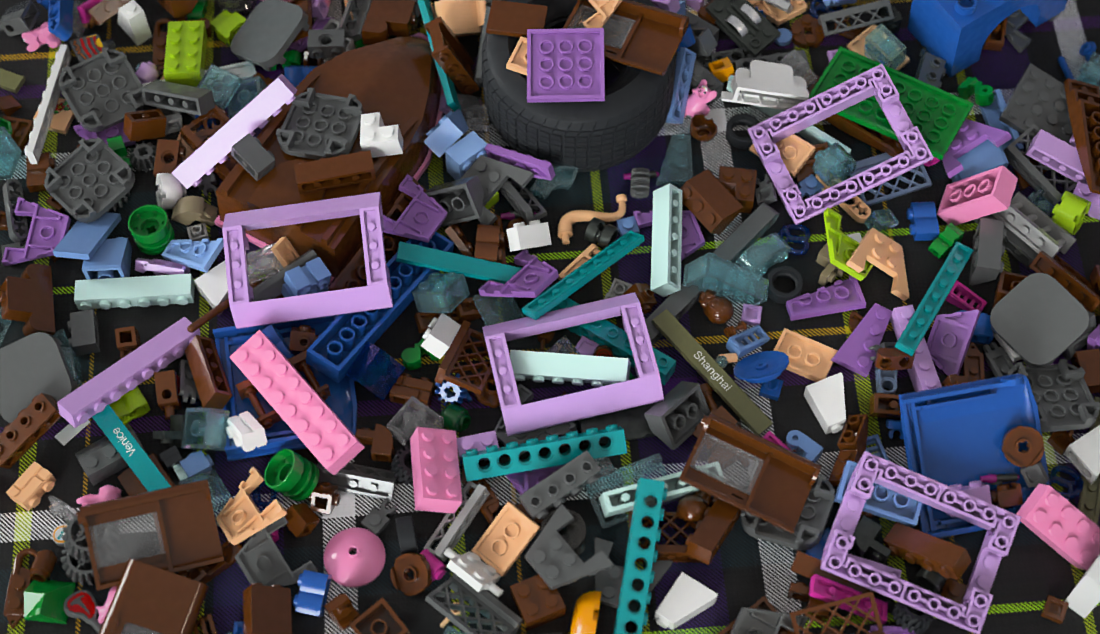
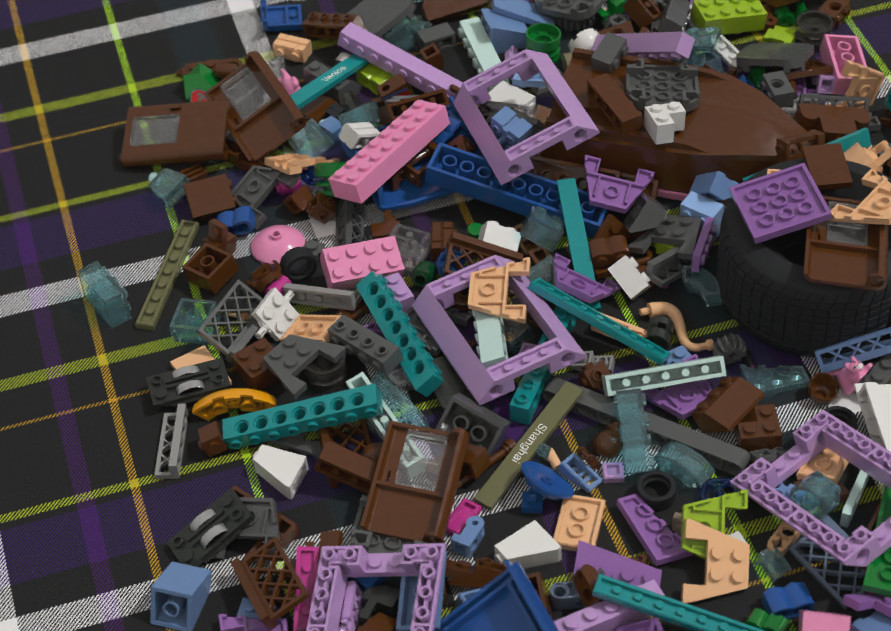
camera: 80 degrees right, 15 degrees down
(375, 370) = (445, 202): clear blue brick -> none
(535, 351) = (490, 290): none -> light nougat wing

